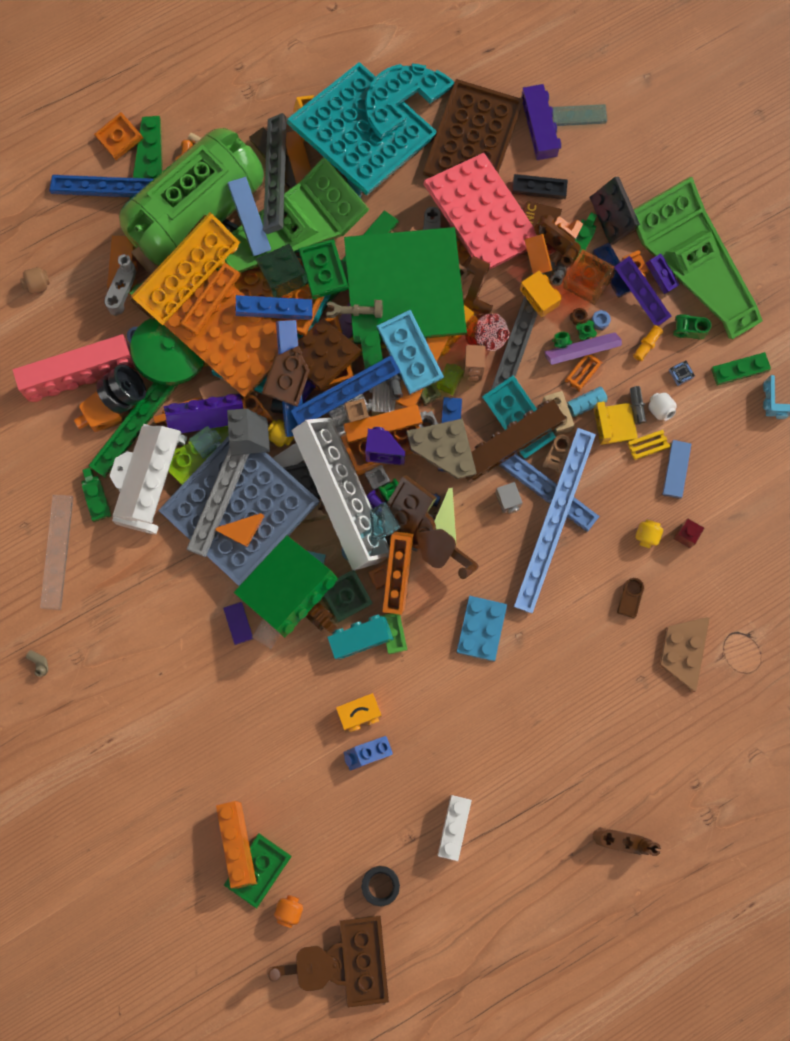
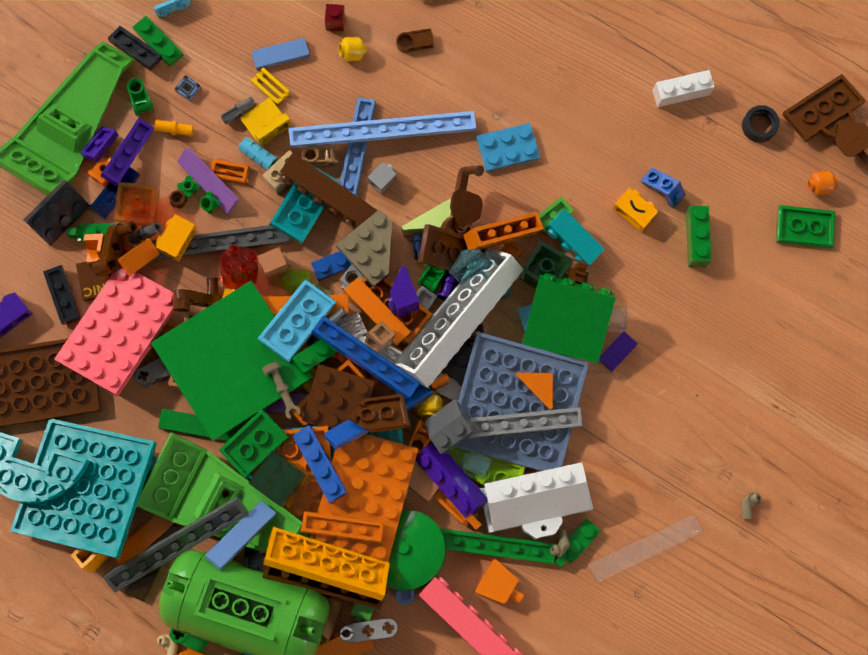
camera: 120 degrees left, 0 degrees up
(95, 474) = (560, 549): none -> dark tan arm
(121, 389) = (469, 570): black wheel -> none
(236, 844) = (798, 250): orange brick -> none
(294, 450) = (440, 382): none -> orange tile
(302, 757) = (698, 236): none -> green brick
(601, 320) = (170, 179): medium blue tile -> none
(662, 406) = (229, 88): white head -> none
(742, 344) = (135, 48): none -> black plate

